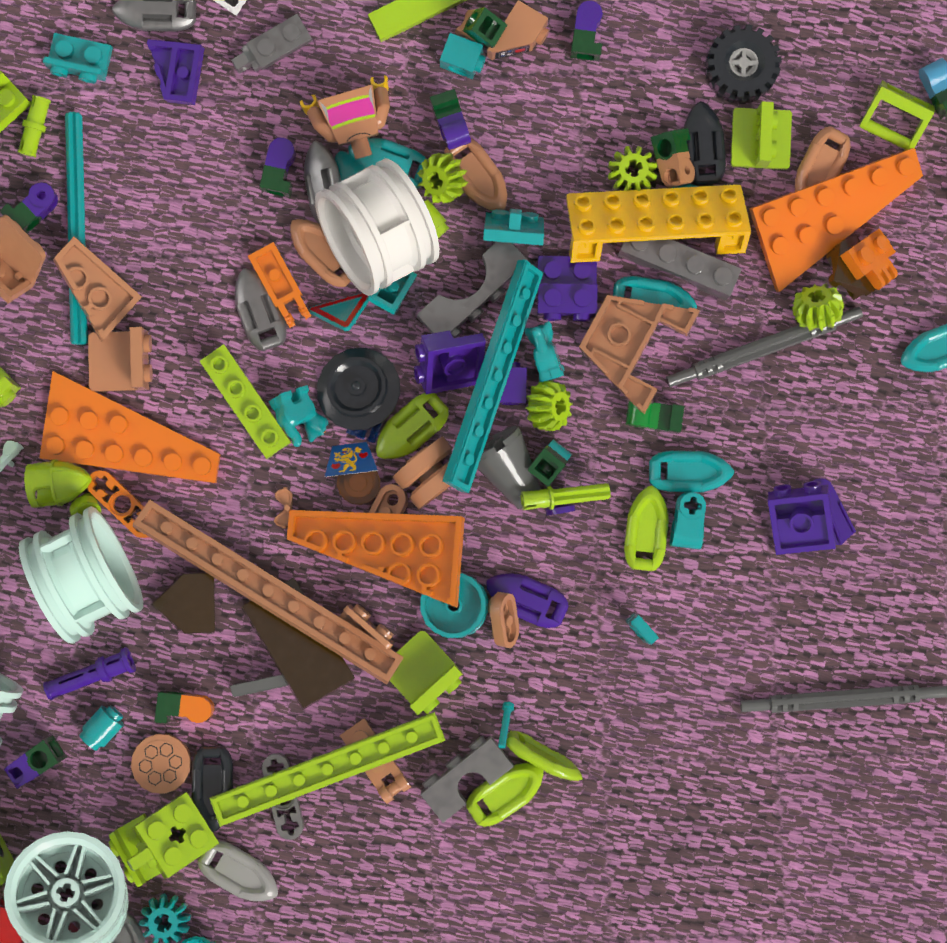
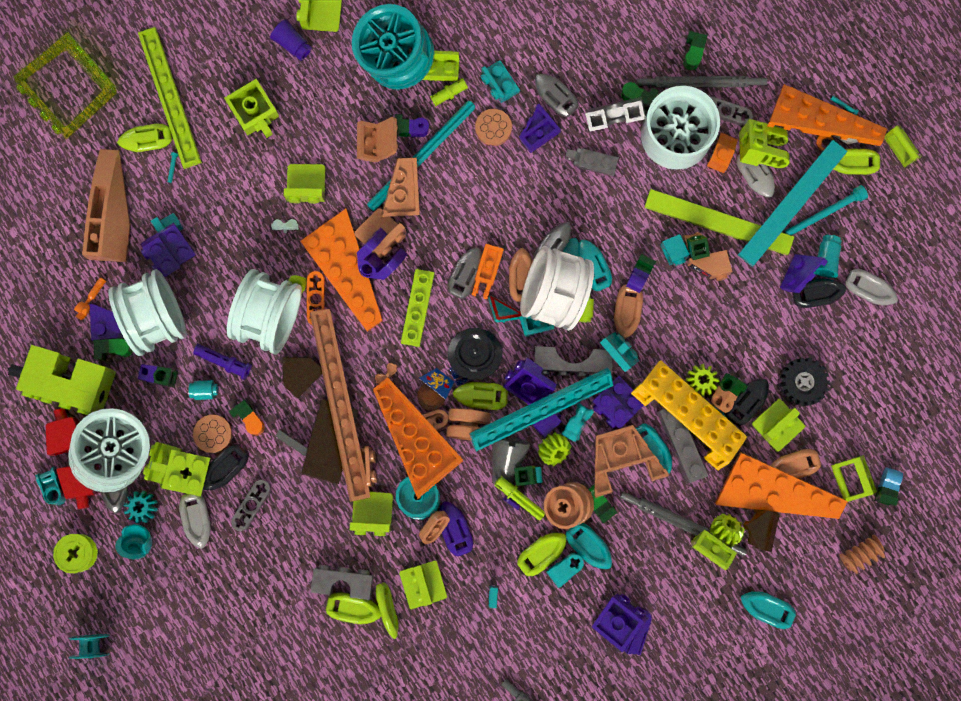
camera: 50 degrees right, 5 degrees down
(55, 483) = (296, 258): lime helmet -> none
(124, 116) = (493, 127): none -> nougat tile
(156, 403) = (377, 269): none -> dark purple piece
(277, 163) = (544, 214): leg -> none
(296, 409) = (435, 334): teal animal -> none
(327, 769) = (284, 513): lime tile -> none
(351, 116) = (596, 227): nougat torso -> none
(363, 730) = (309, 531): nougat plate -> none
(442, 177) = (610, 296): lime gear -> none
(508, 707) = (394, 570): teal piece -> none
(554, 692) = (423, 584): none -> lime bracket
(586, 22) = (748, 291): leg -> none
(625, 450) = (568, 505): none -> nougat wheel
(824, 342) = (713, 549): none -> lime tile
(871, 259) = (775, 533): orange hinge -> none

